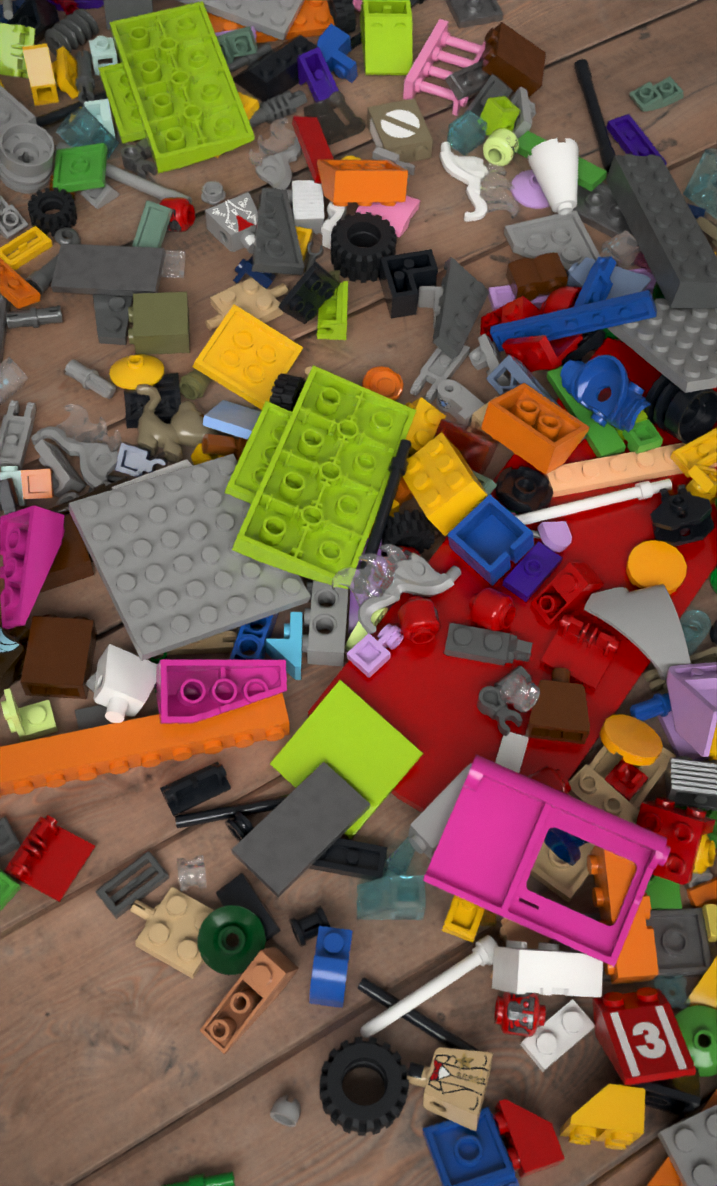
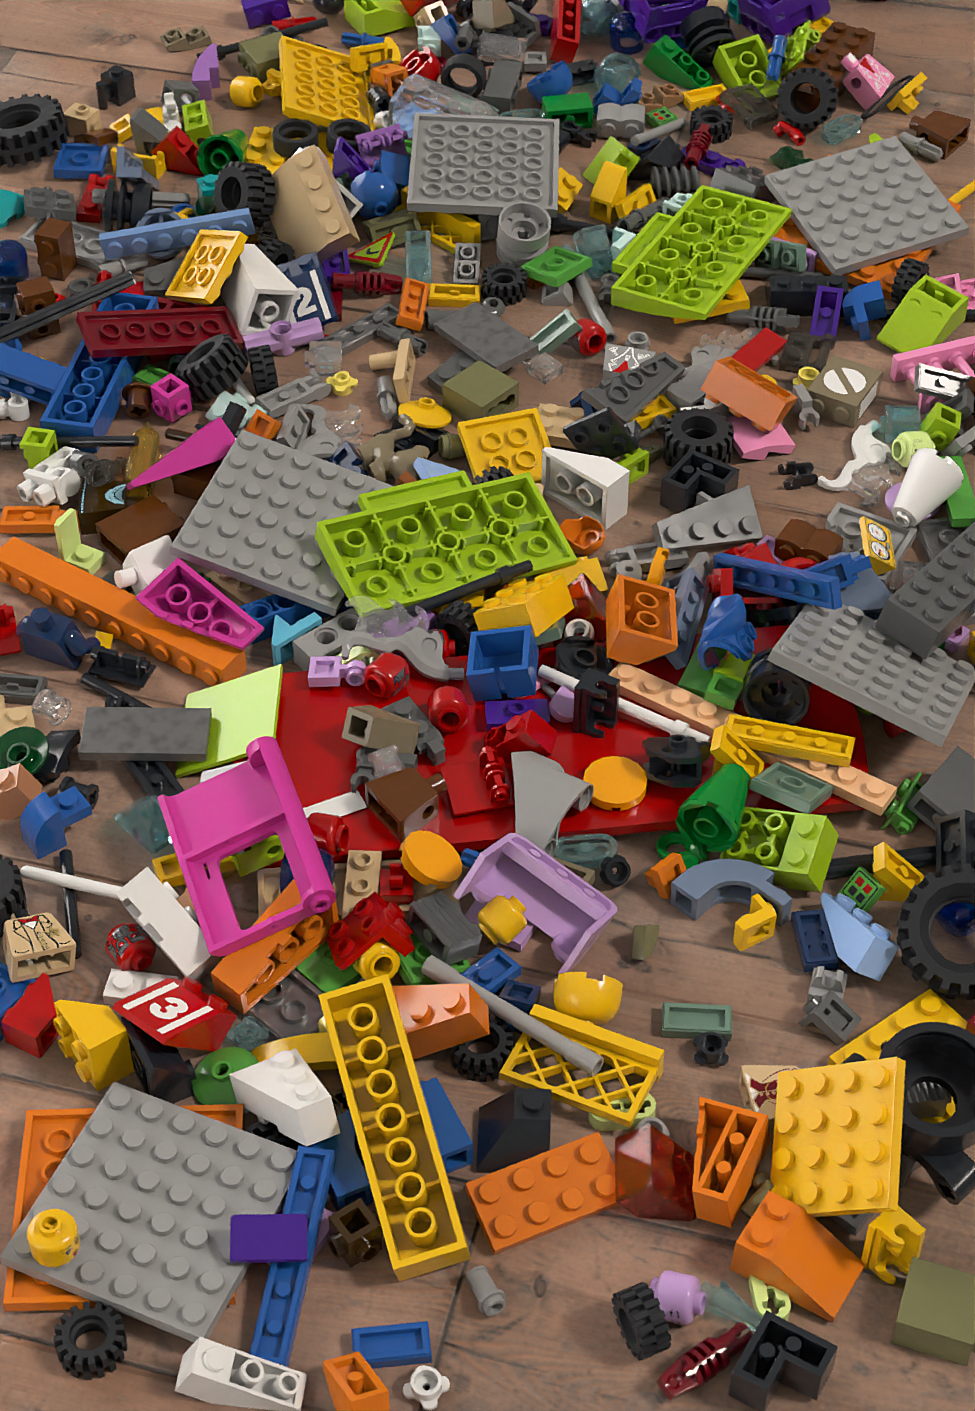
camera: 50 degrees right, 15 degrees down
(39, 398) = (342, 383): none -> light yellow plate
(64, 333) = (404, 364): none -> tan piece
(120, 812) = (57, 638): none -> dark blue torso
(340, 342) = (586, 484): none -> white slope
(362, 139) = (806, 376): none -> light yellow plate
(440, 219) = (802, 471): none -> black piece
(476, 376) = (657, 567): none -> light orange tile
(478, 669) = (380, 729): none -> dark tan slope
(492, 461) = (579, 626): none -> white plate
(578, 242) = (877, 545): none -> yellow slope
(584, 515) = (595, 703): none -> black hinge

